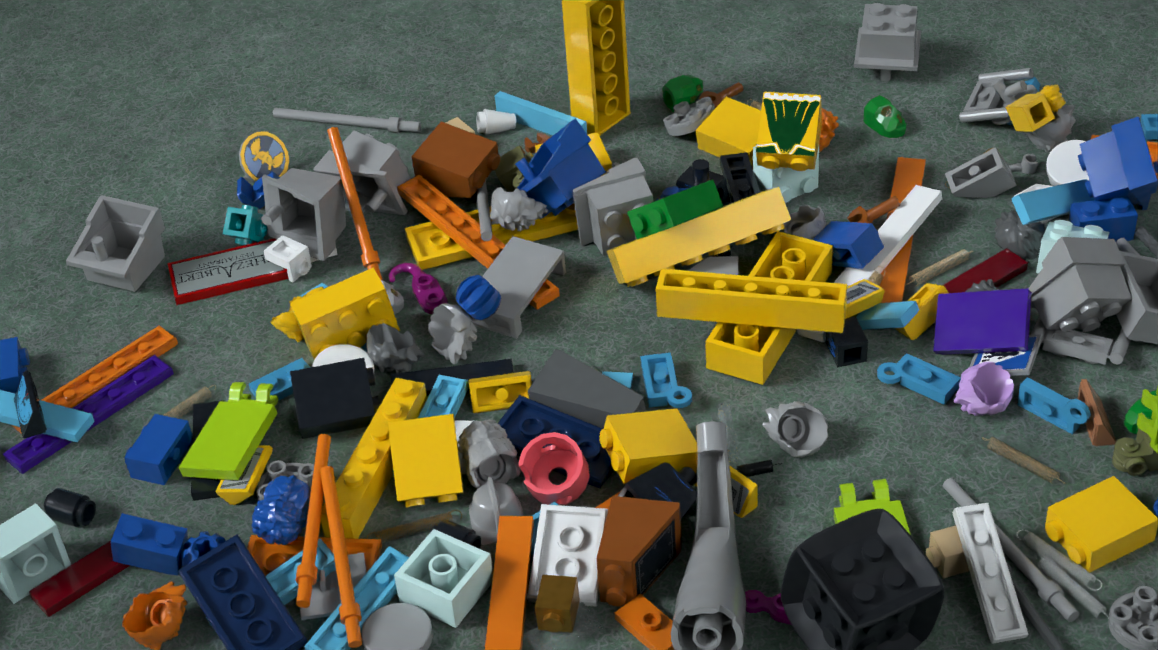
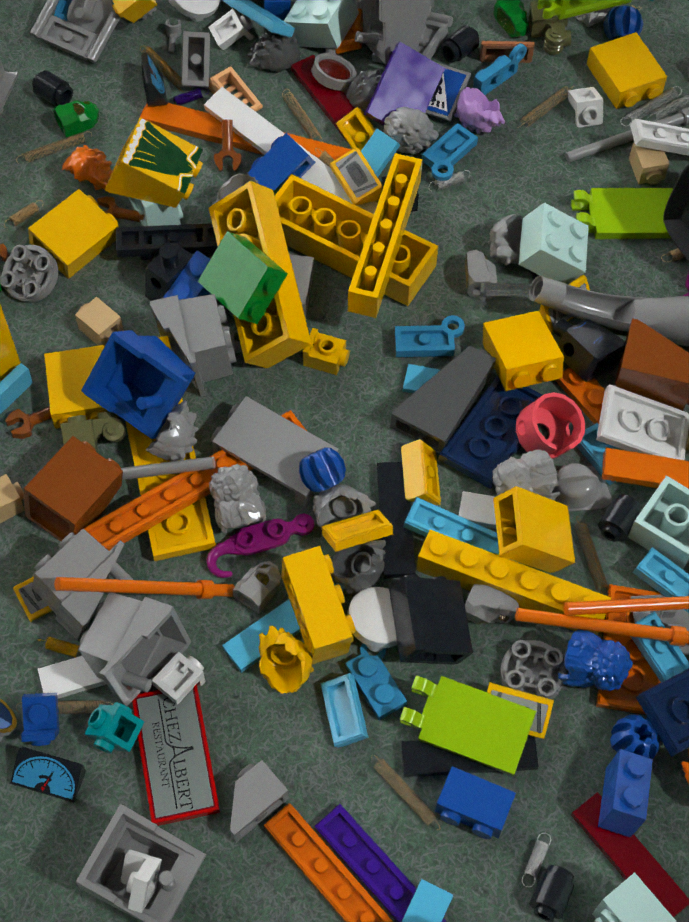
camera: 90 degrees left, 20 degrees up
(106, 501) = (536, 859): none -> white piece
(112, 239) = (141, 876): none -> white bracket
(179, 313) = (255, 798): none -> light grey slope
(215, 209) = (47, 774): none -> slope
(256, 361) = (344, 710): none -> medium azure tile
(348, 439) = (489, 605): none -> light grey rock
(427, 341) = (357, 530): none -> yellow tile
(454, 258) = (236, 497): none -> light grey hair
(633, 308) = (325, 353): none -> yellow brick
(651, 159) = (98, 321): none -> tan brick
(749, 409) = (478, 270): none -> light grey rock
(793, 456) = (553, 244): none -> light aqua brick
(848, 111) = (61, 141): none -> tan piece
(885, 389) = (455, 179): none -> white piece
(914, 98) = (52, 88): none -> black brick
(931, 336) = (410, 129): none -> light grey hair
(936, 184) = (188, 96): none -> dark purple piece
(942, 153) = (152, 82): none -> black slope
(971, 206) = (230, 76): none -> light nougat slope
(1006, 271) = (333, 70): none -> light grey piece
(1029, 487) = (587, 106): none -> white bracket
(1085, 367) = (460, 44): none -> black brick

